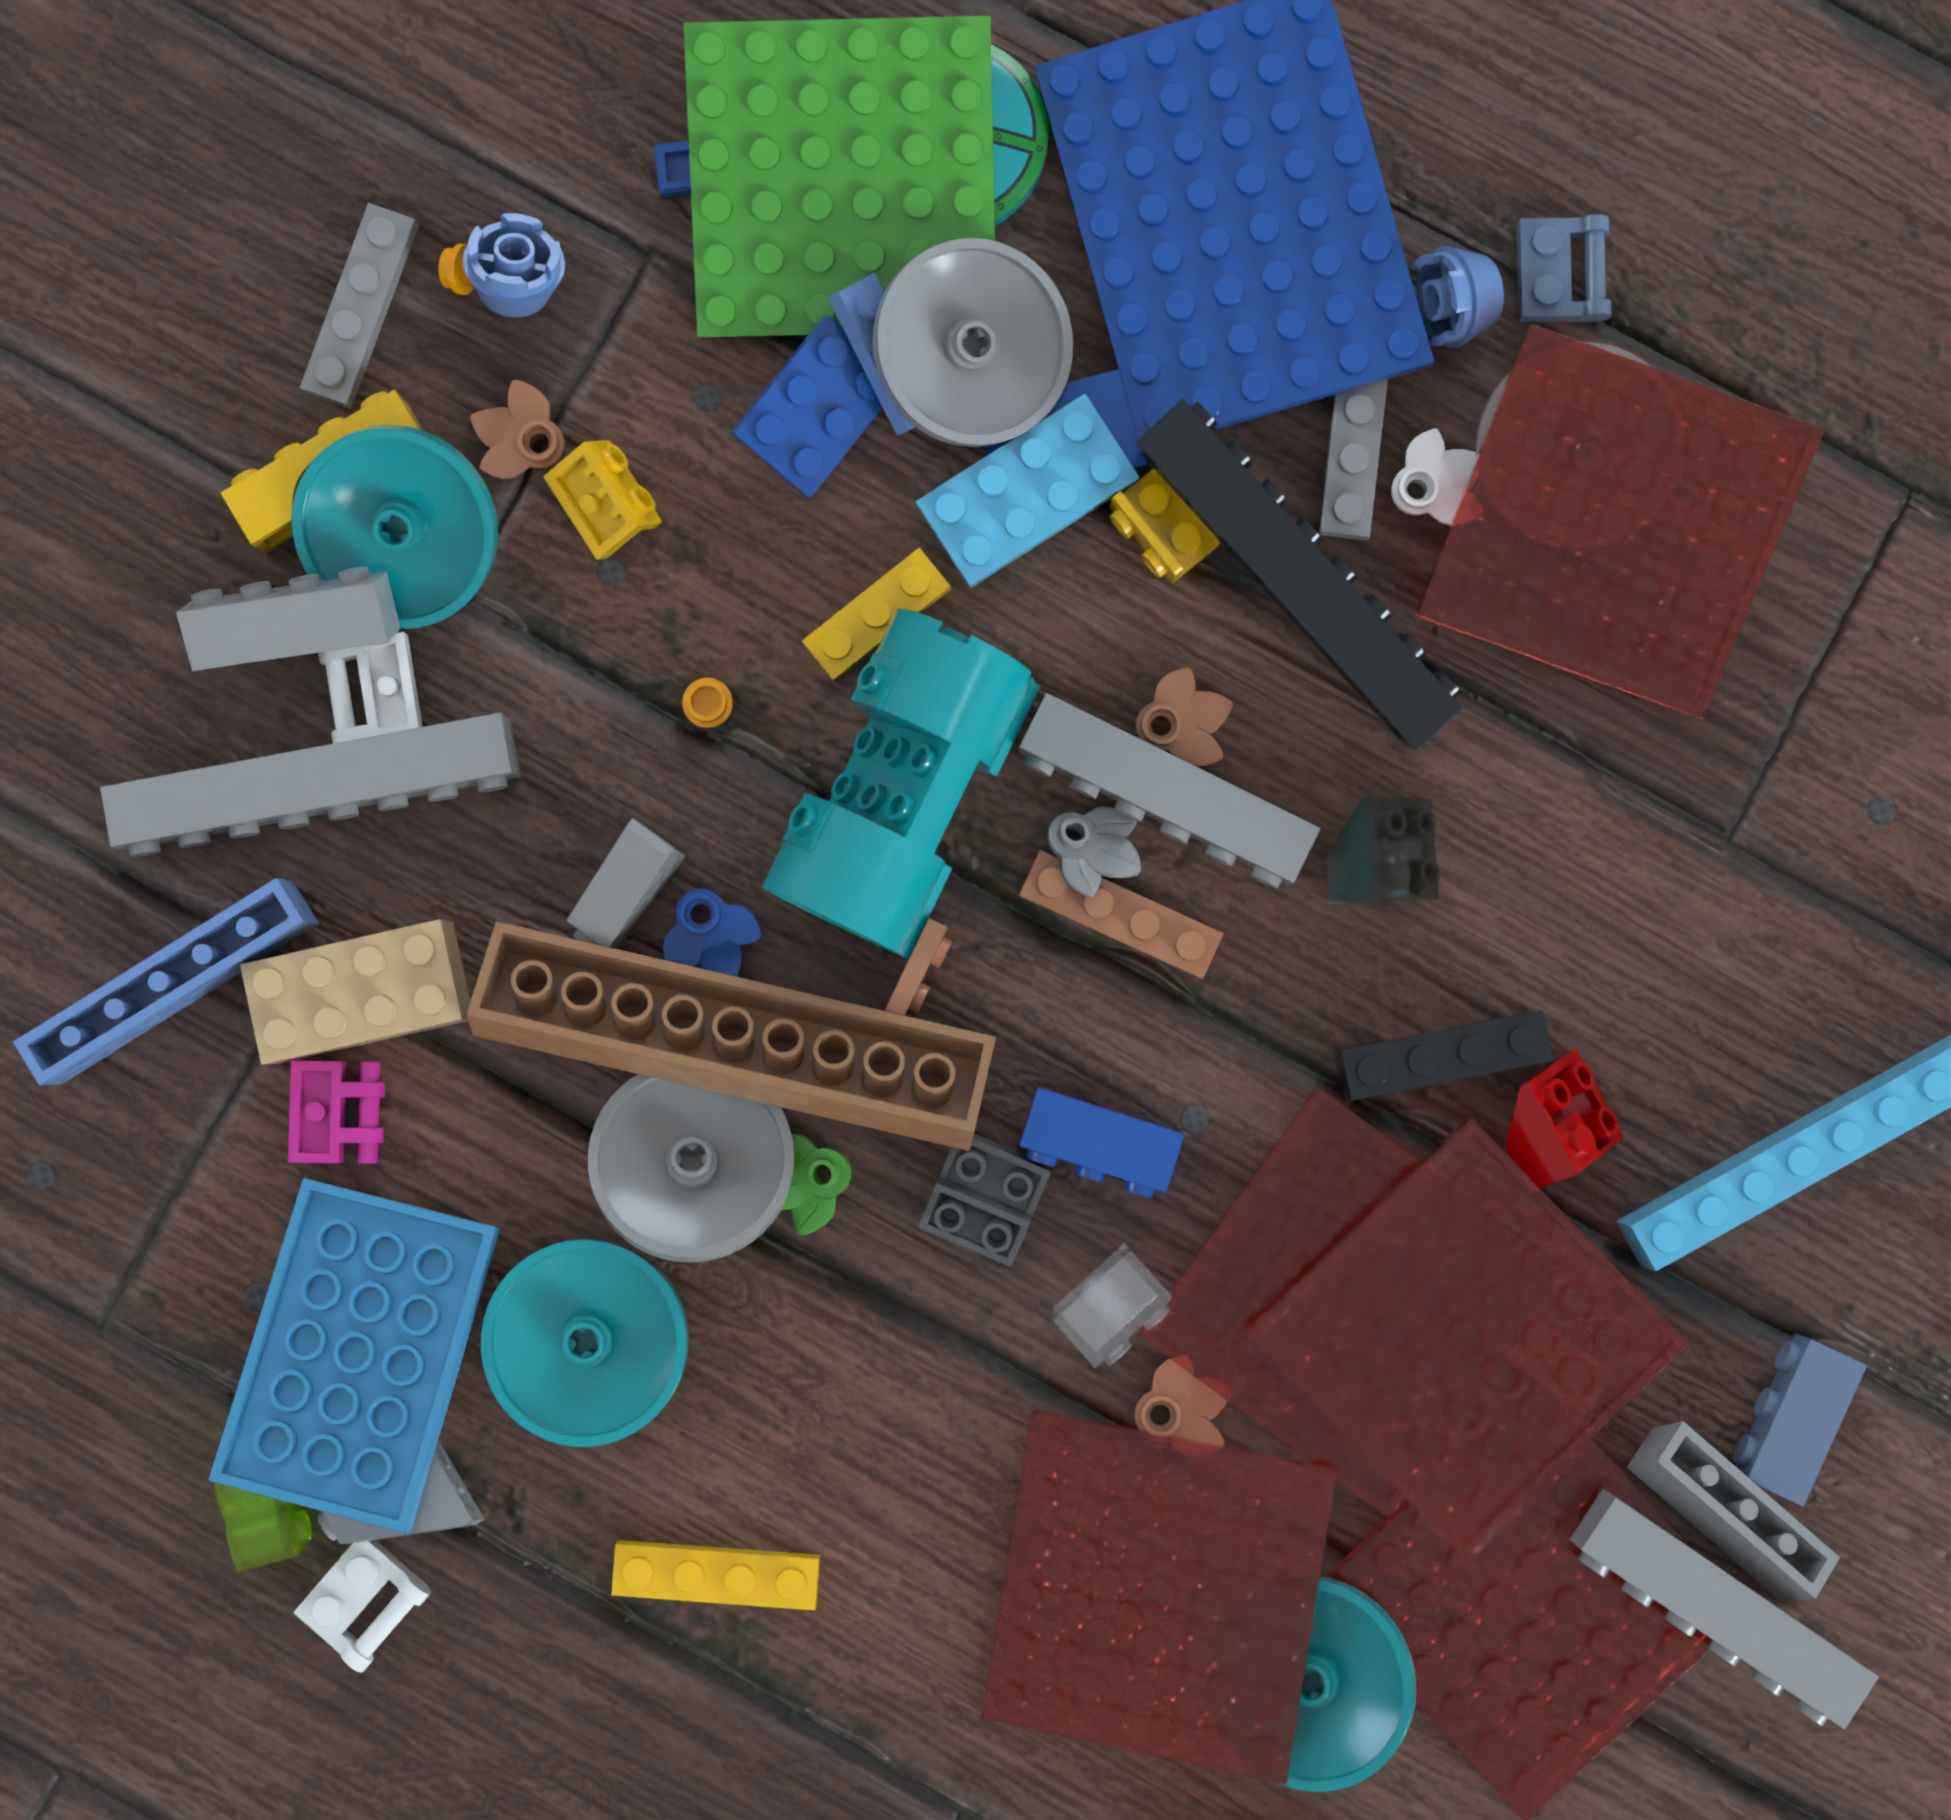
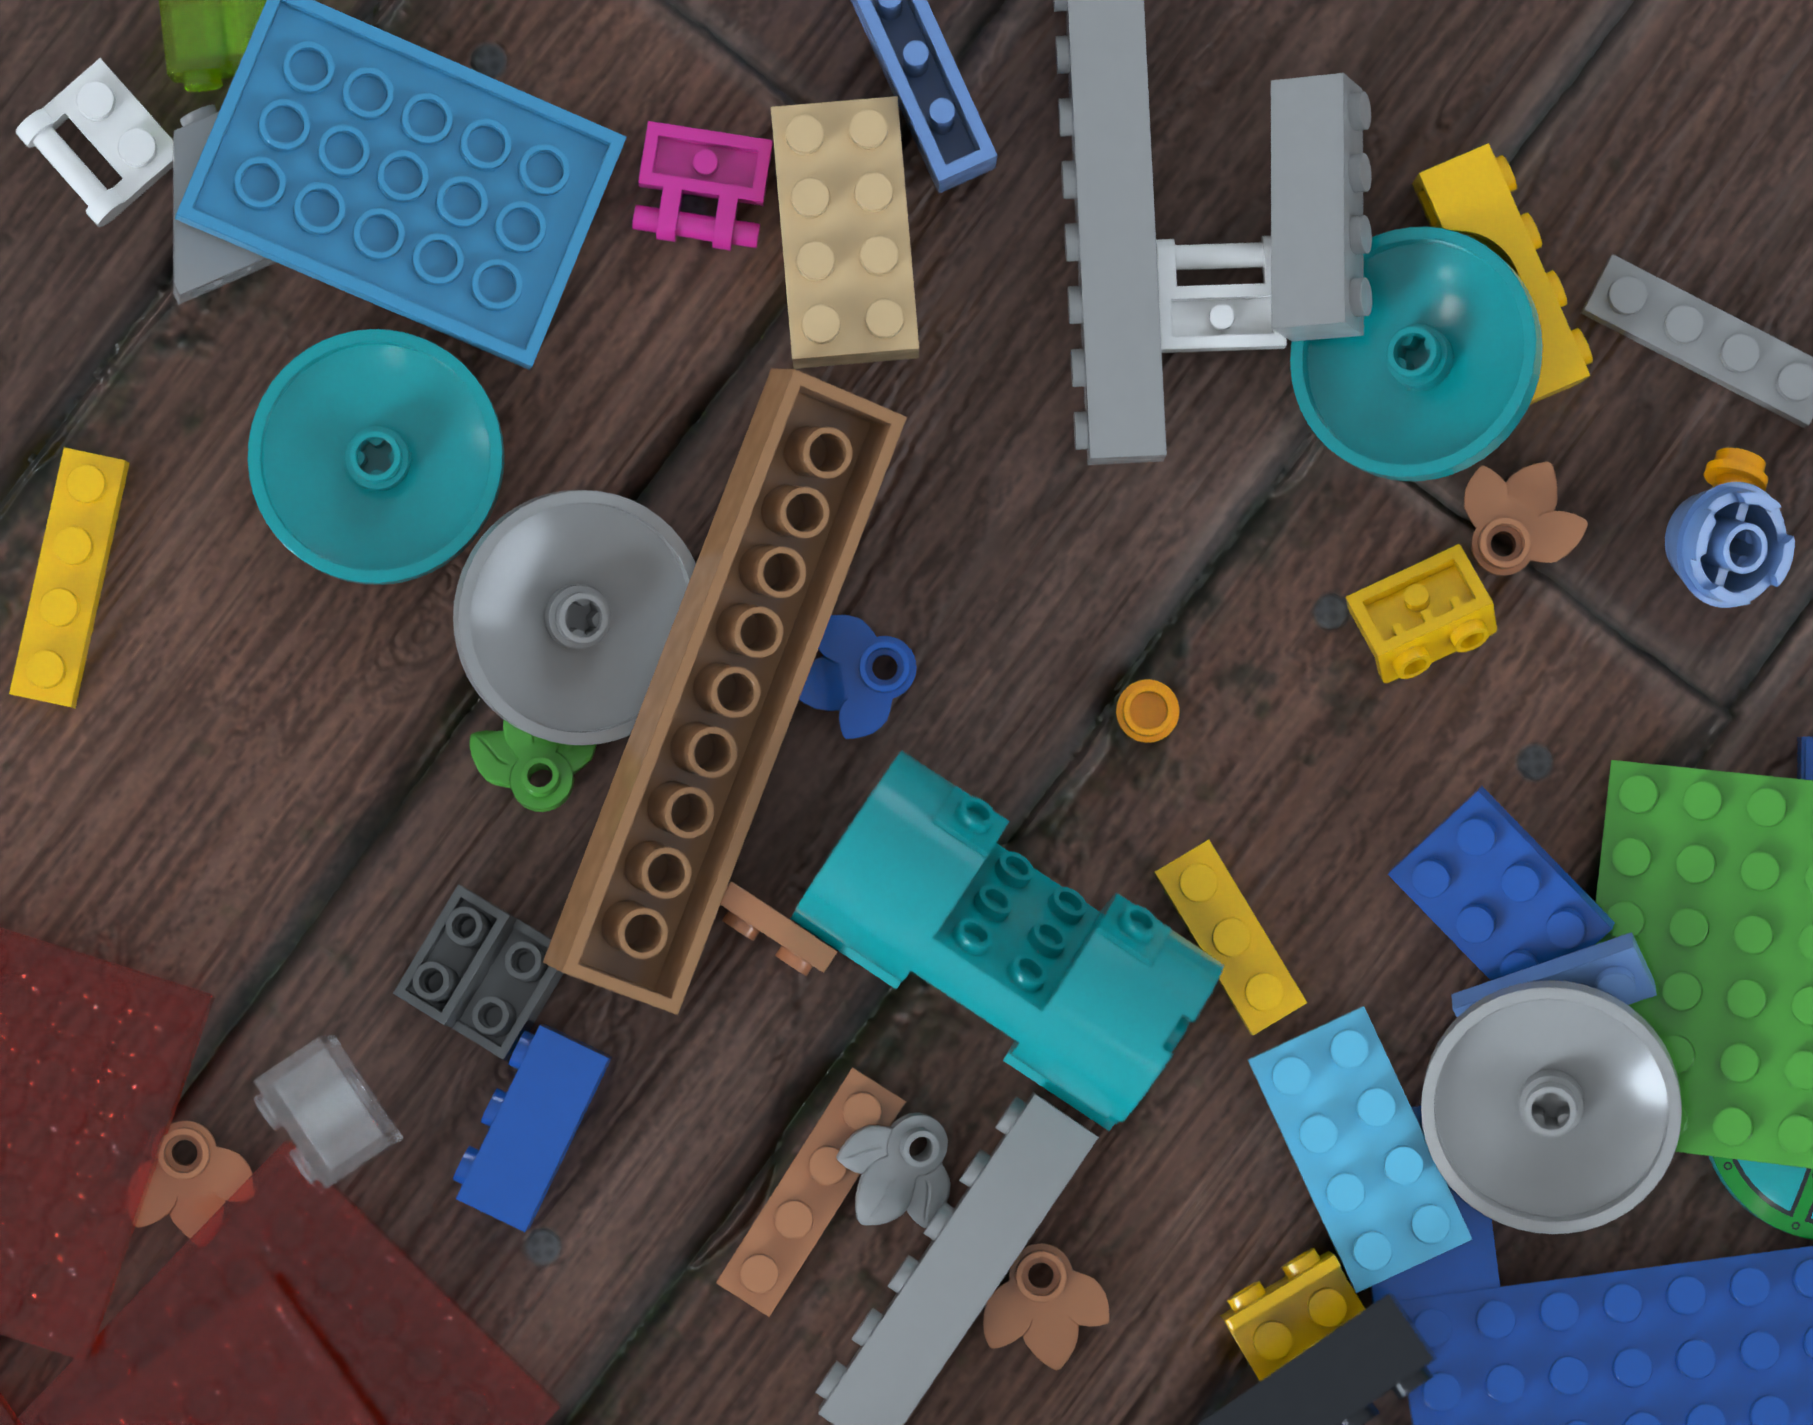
camera: 90 degrees right, 0 degrees up
(624, 886) = (929, 578): light grey slope -> none

